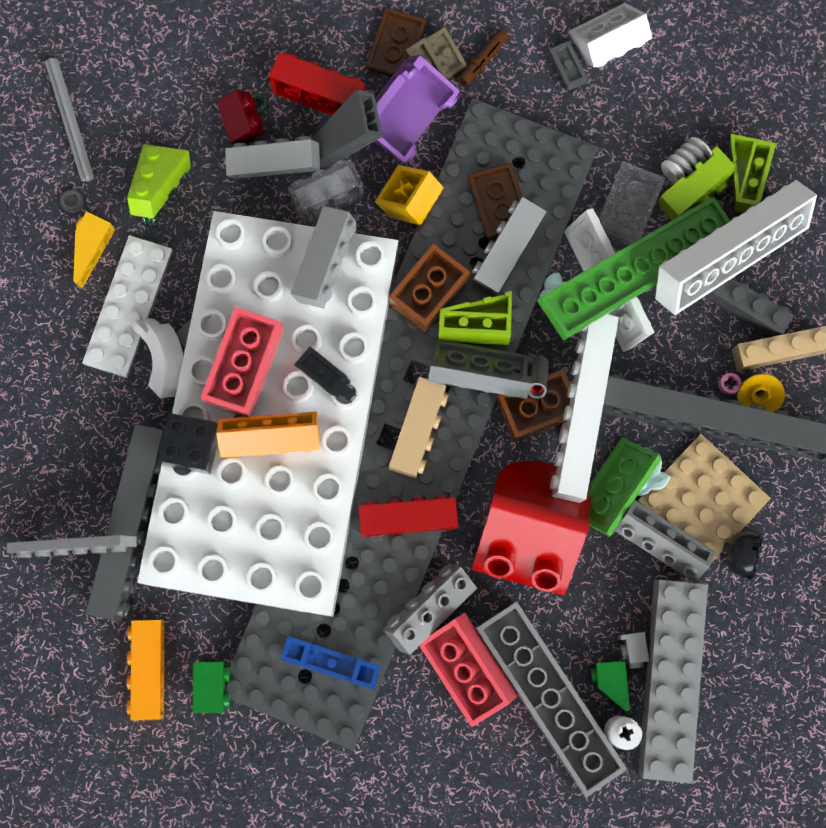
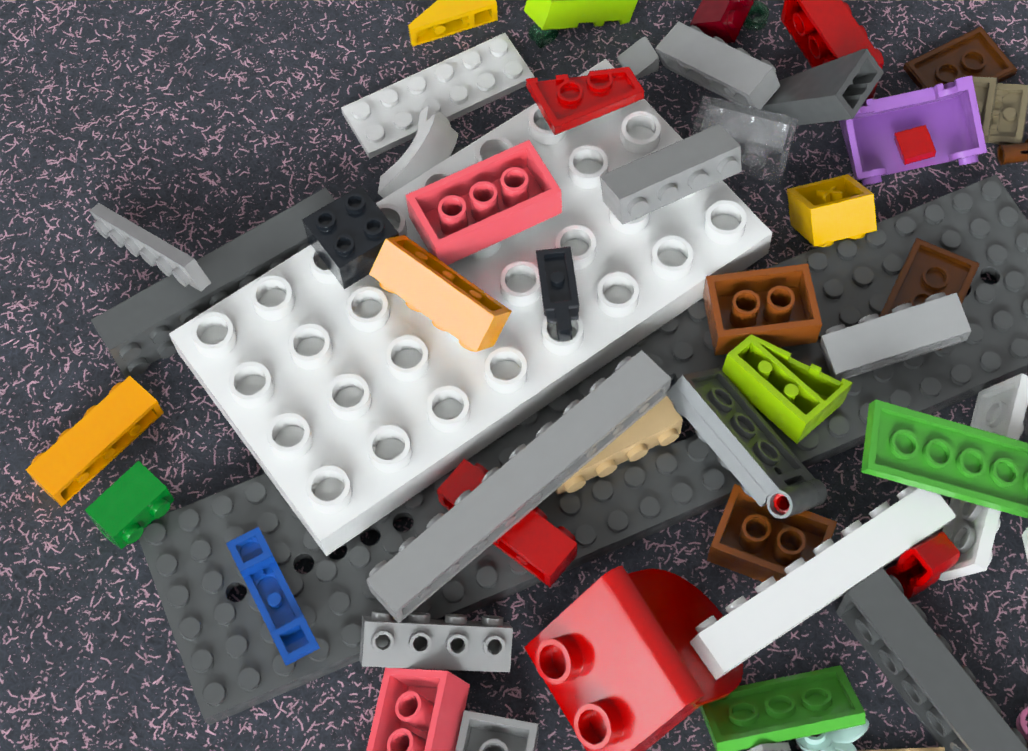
camera: 50 degrees right, 15 degrees down
(220, 187) = (640, 58): none -> light grey slope
(230, 252) = (580, 99): none -> red wing
(403, 495) = (518, 486): none -> light grey brick
(415, 114) = (914, 144): none -> red tile
(623, 353) = (924, 563): none -> red brick

